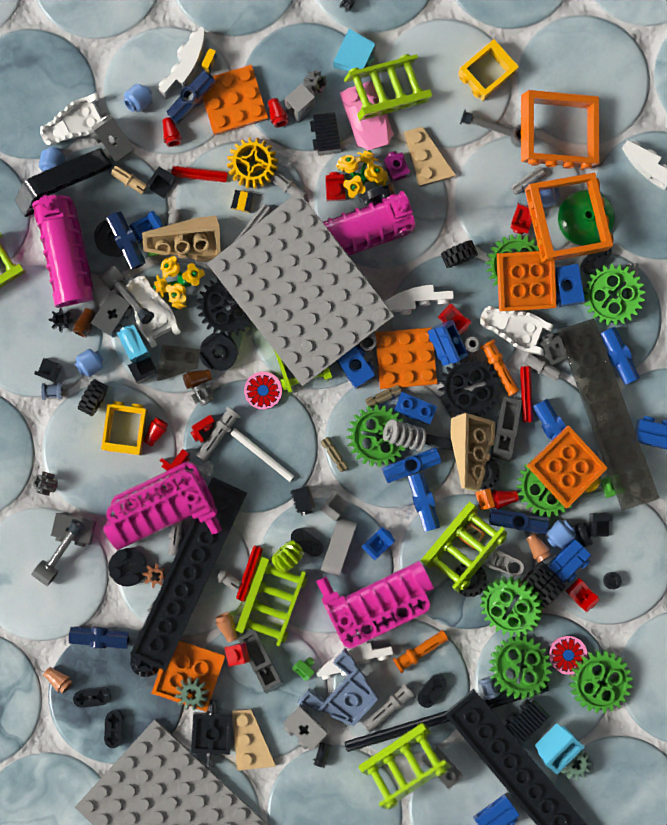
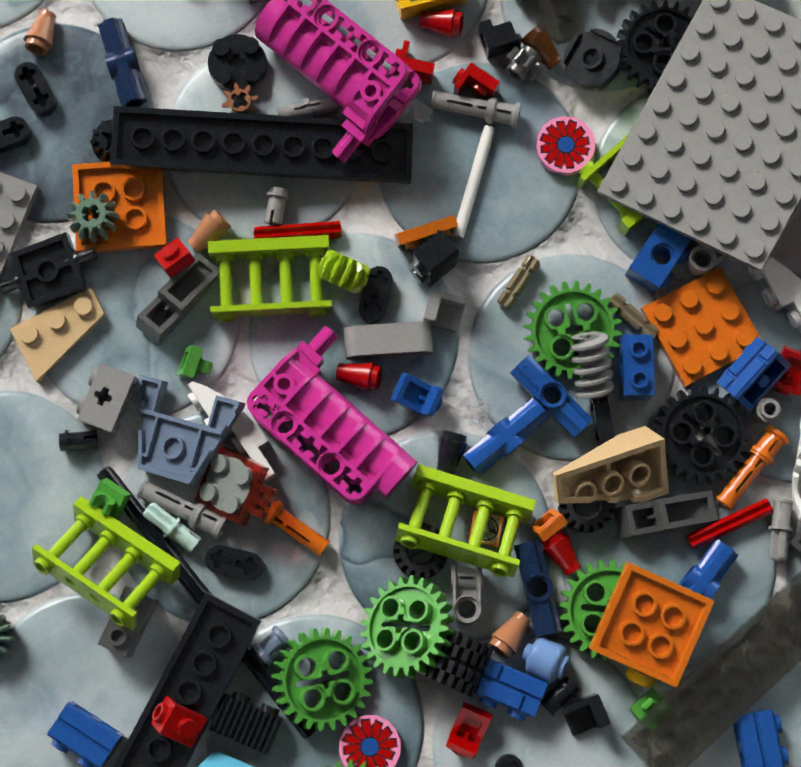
camera: 75 degrees right, 5 degrees down
(179, 401) = (498, 39): none -> black panel
(283, 489) = (413, 236): none -> orange plate
(352, 571) = (362, 375): none -> red cone
(365, 749) = (110, 498): none -> bright green tile
(390, 672) = (235, 486): none -> piece
(396, 719) = (171, 527): none -> light aqua axle
(418, 537) = (450, 451): none -> black cone
(512, 760) = (177, 722): none -> red bracket

